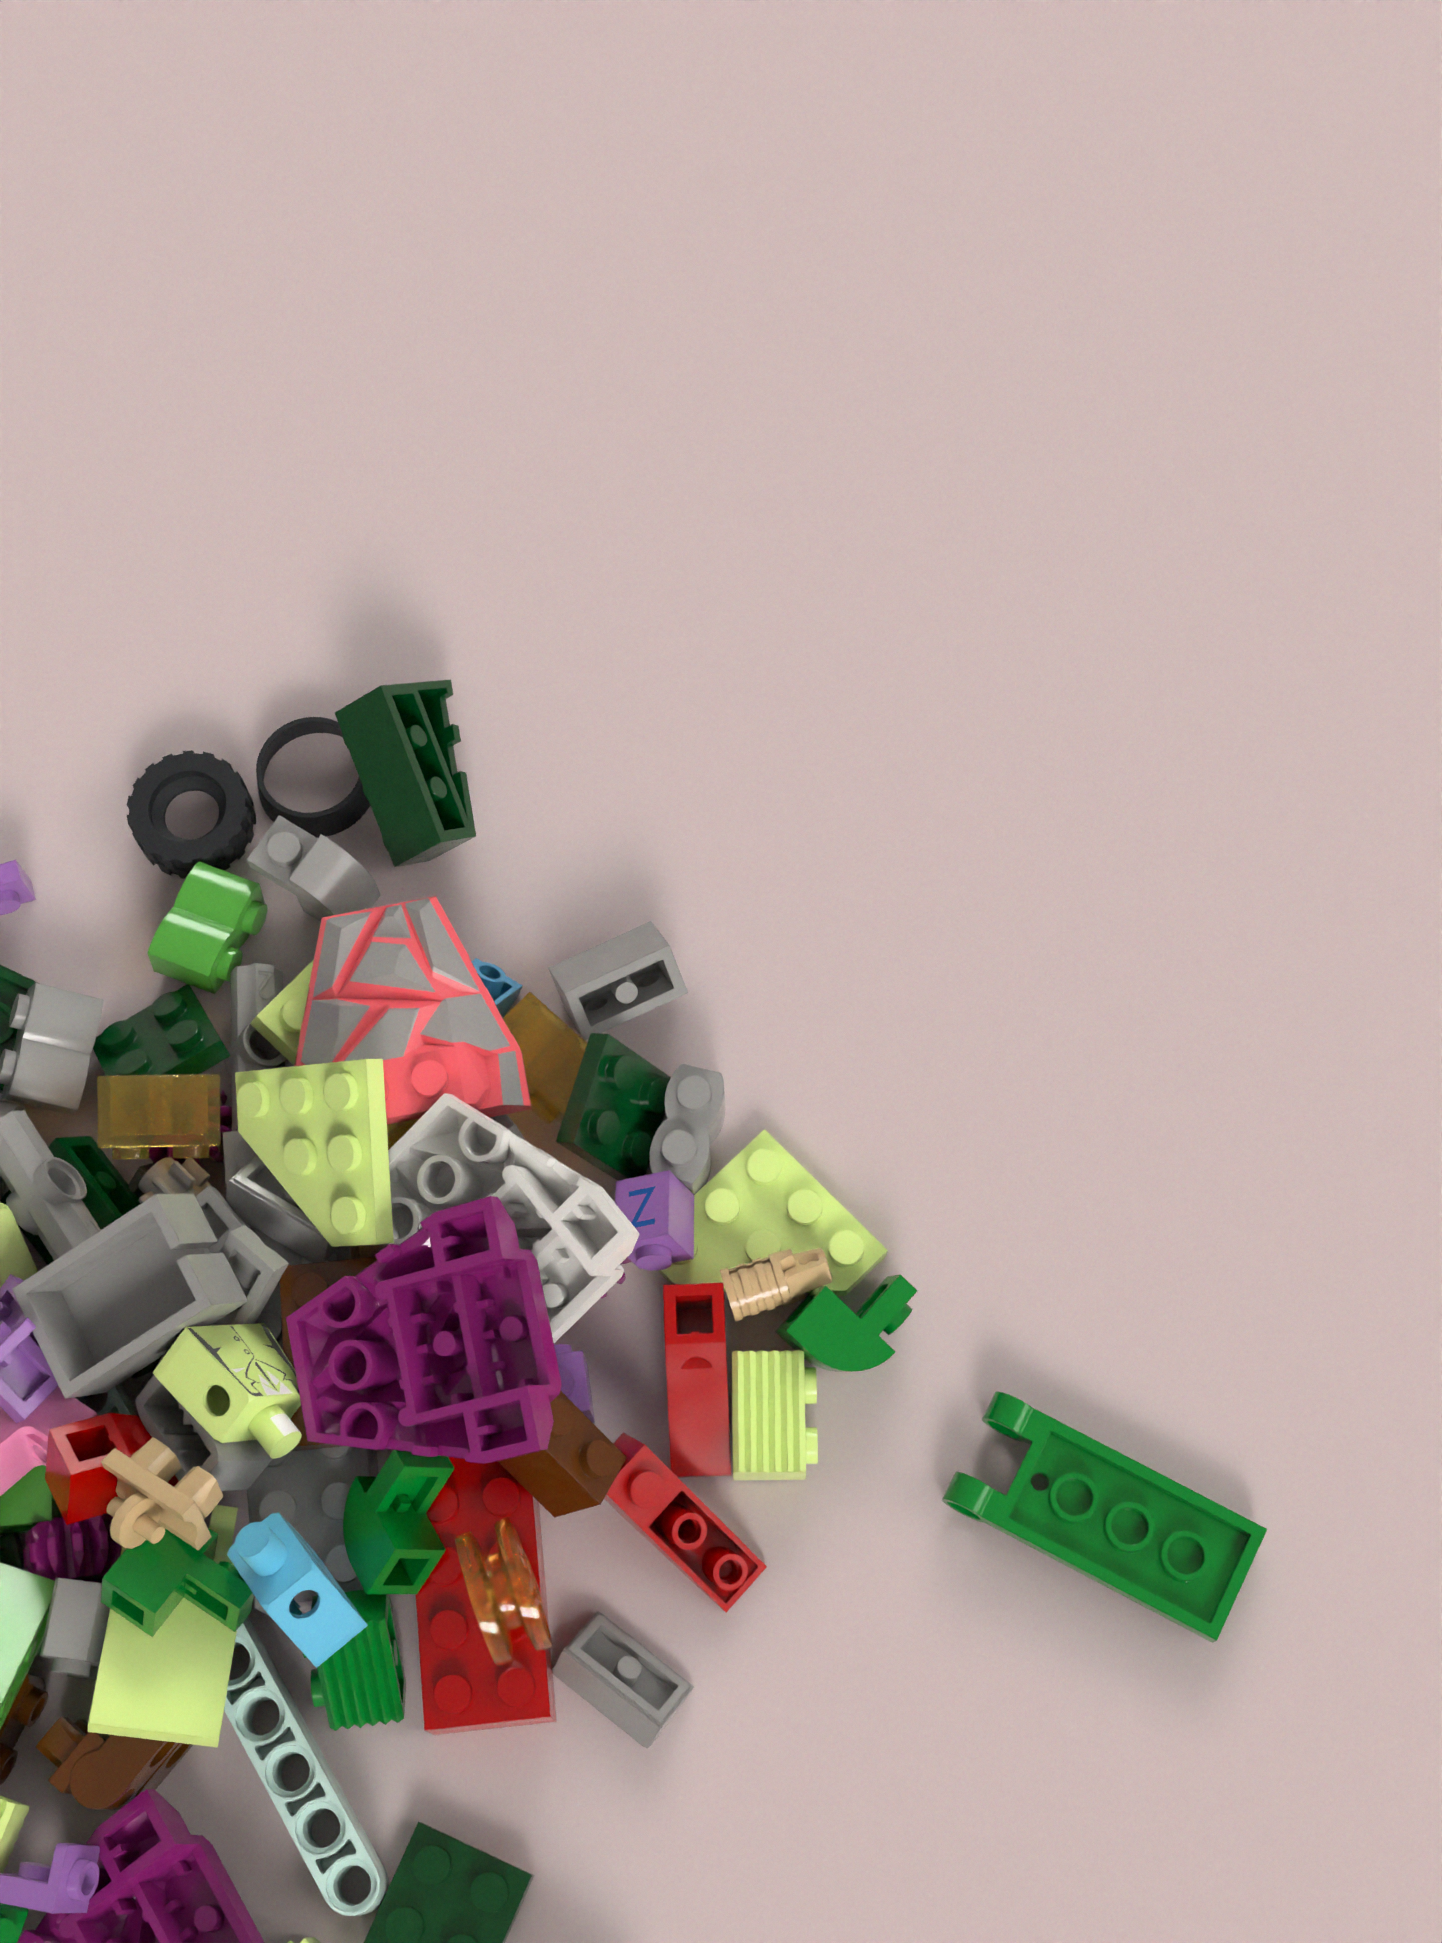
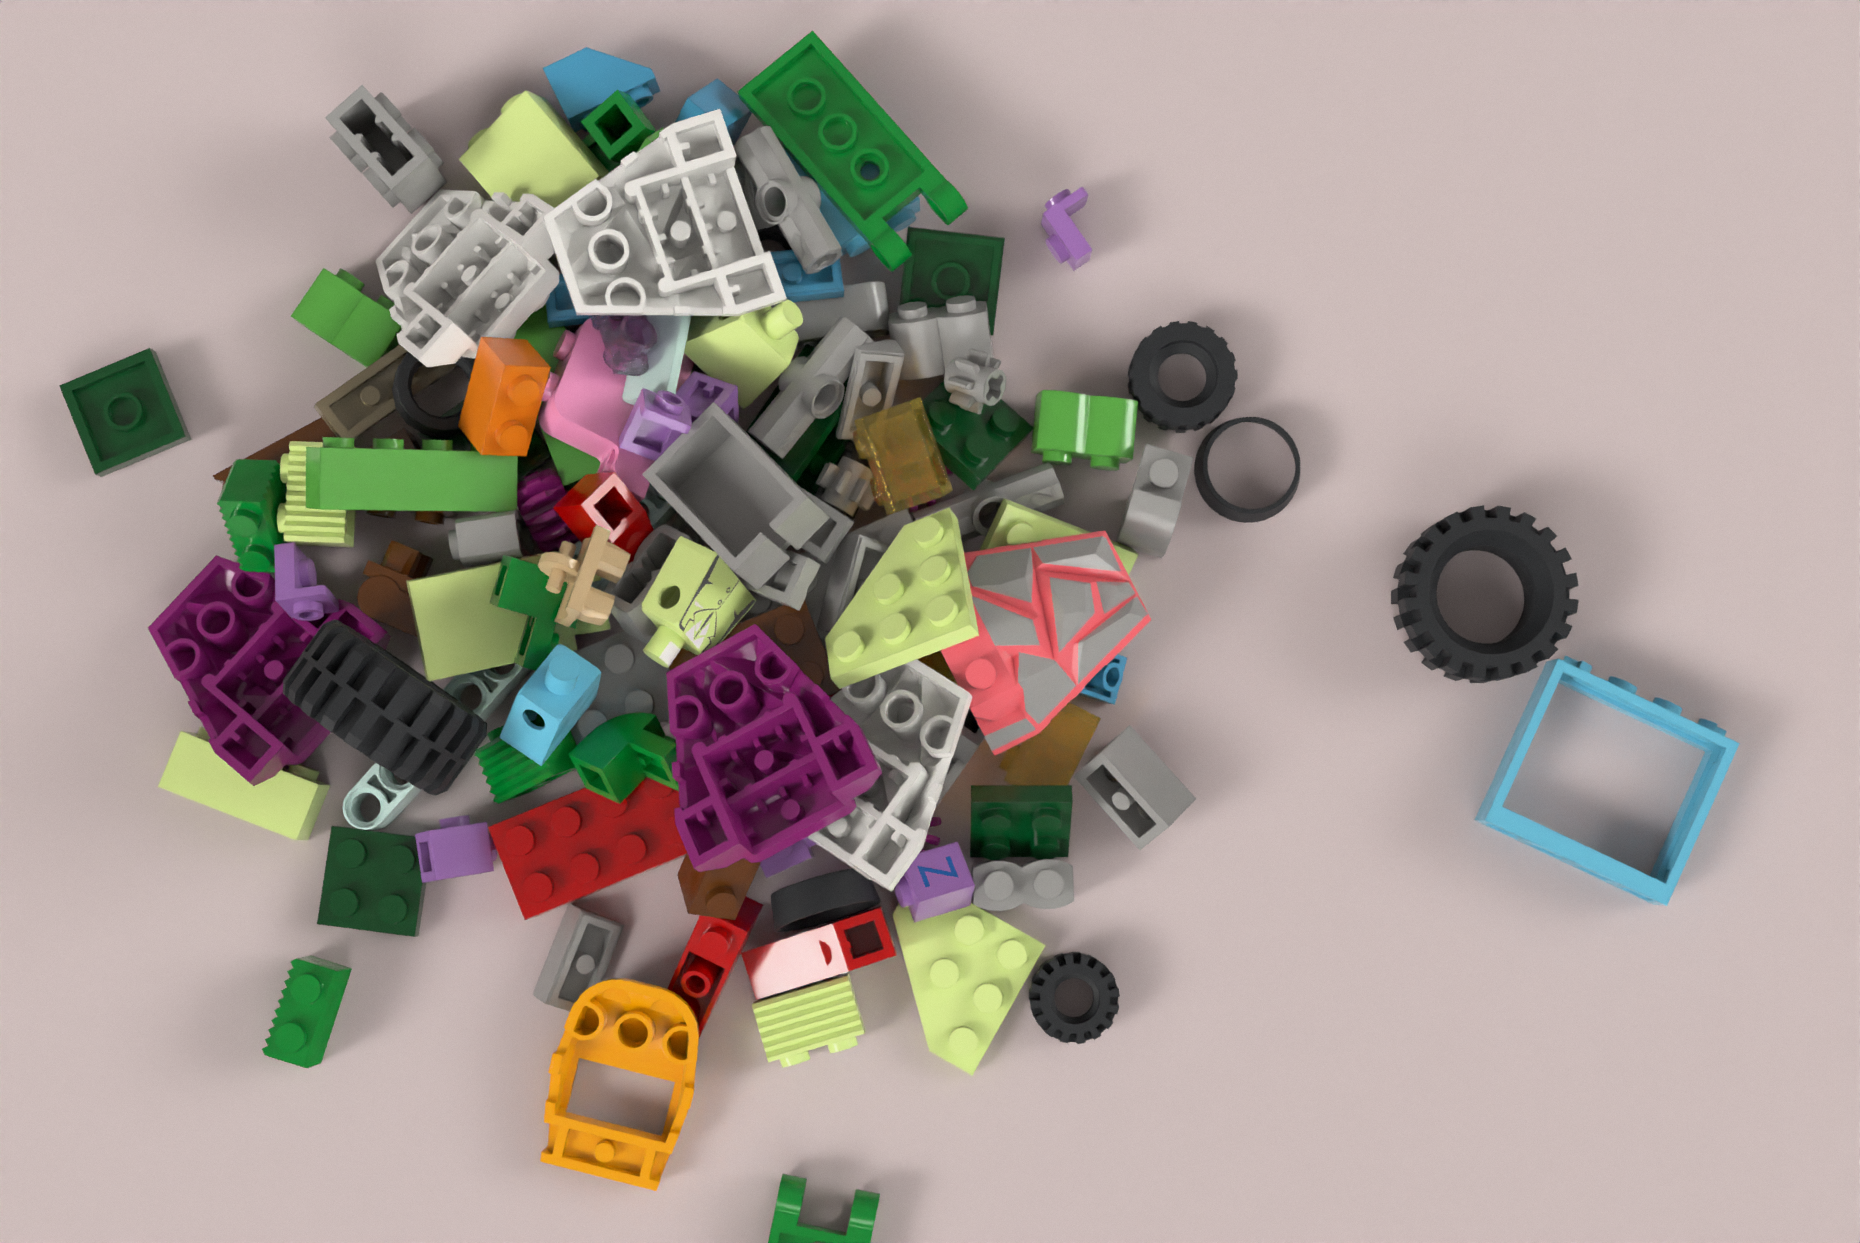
camera: 70 degrees right, 15 degrees up
(71, 1132) = (870, 383): none -> light grey slope
(108, 1015) = (975, 381): none -> light grey gear
(225, 1793) = (384, 708): none -> black tyre
(409, 768) = (1270, 551): dark green wedge -> none
(441, 1788) = (455, 850): none -> medium lavender brick
(503, 1591) = (594, 863): clear orange wheel -> none
(519, 523) = (1542, 581): none -> black tyre
(635, 1353) = (822, 900): none -> black tyre
(710, 452) = (1658, 714): none -> medium azure window
(723, 1628) = (634, 1030): none -> light orange slope
(774, 1281) = (915, 993): tan hinge -> none
(838, 1081) = (1082, 1027): none -> black tyre
(847, 1340) = (885, 1065): green brick -> none

